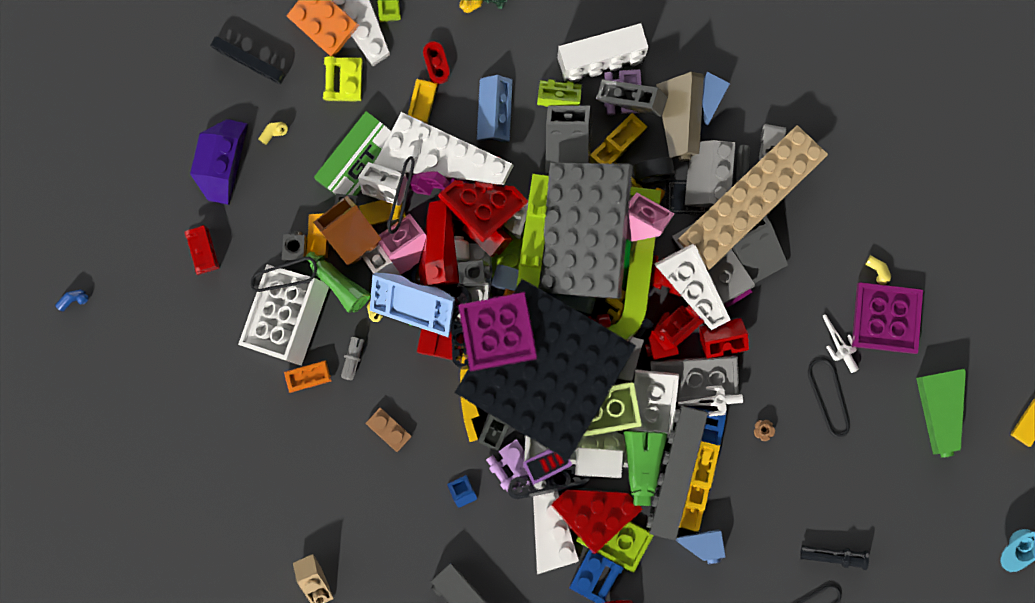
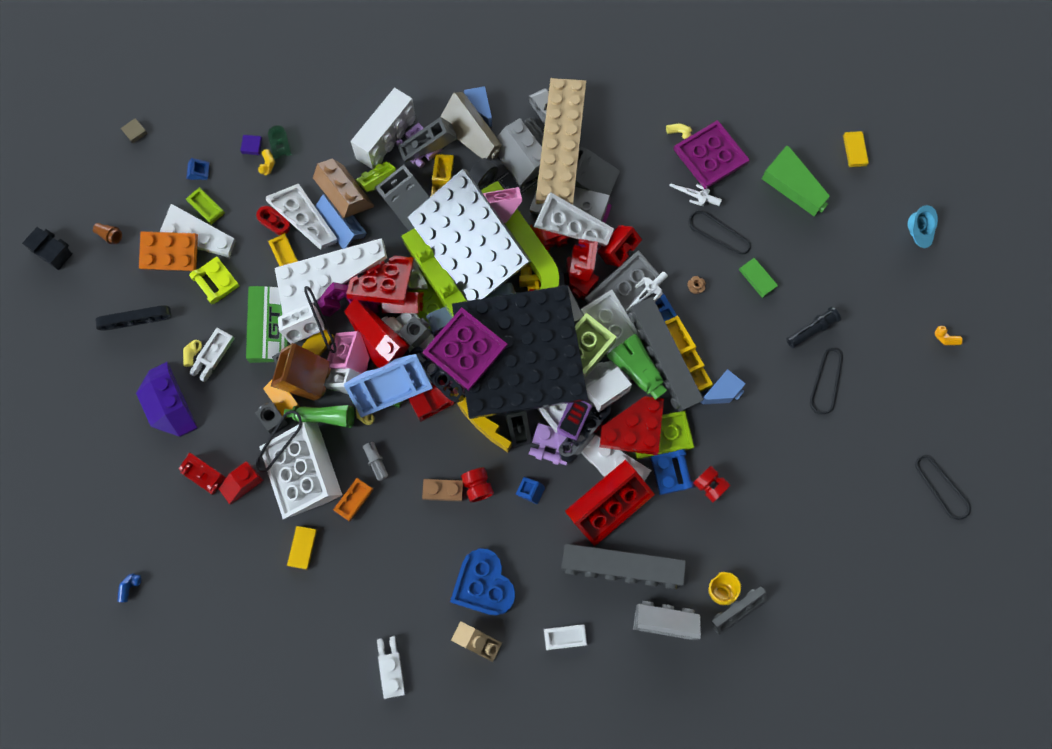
camera: 45 degrees left, 10 degrees down
(227, 284) = (240, 482): none -> red slope
(227, 544) = (390, 670): none -> white hinge
(234, 382) = (302, 547): none -> yellow tile
(290, 147) = (212, 353): none -> white hinge
(356, 538) = (482, 585): none -> blue plate
(419, 451) = (477, 484): none -> red wheel
(465, 75) = (301, 213): none -> white wing
(517, 560) = (609, 502): none -> red slope
(519, 82) = (341, 188): none -> medium nougat slope
(827, 469) = (758, 277): none -> bright green tile

